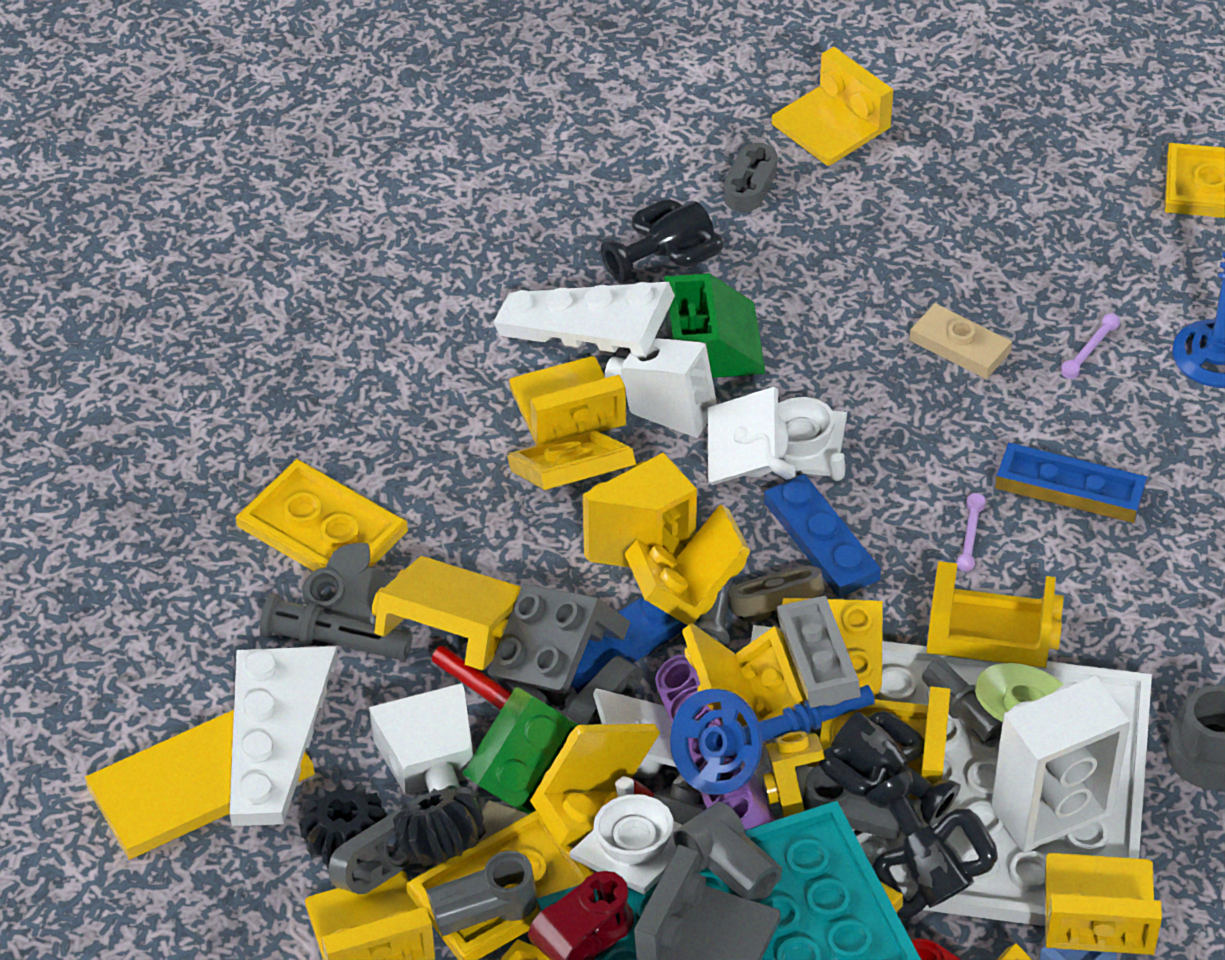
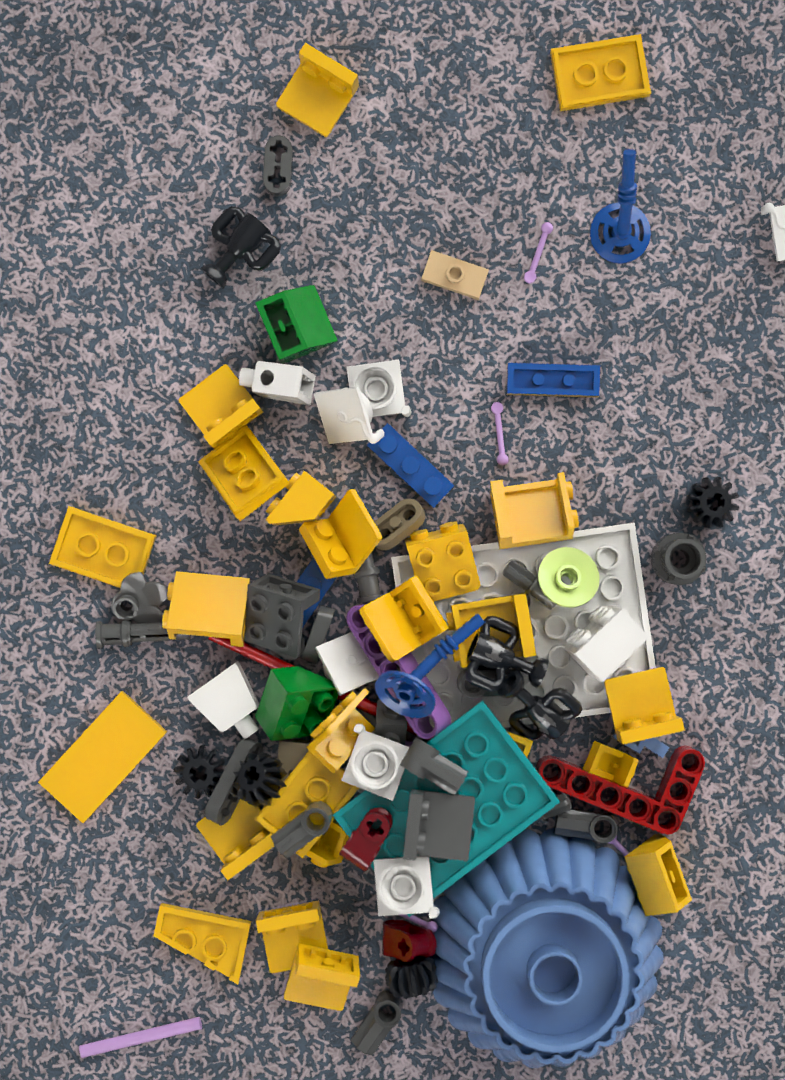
camera: 20 degrees left, 40 degrees up
(273, 726) = (133, 716): white wing -> none
(598, 314) = (221, 345): white wing -> none
(784, 755) = (448, 676): yellow bracket -> none
(818, 652) = (443, 600): light grey plate -> none

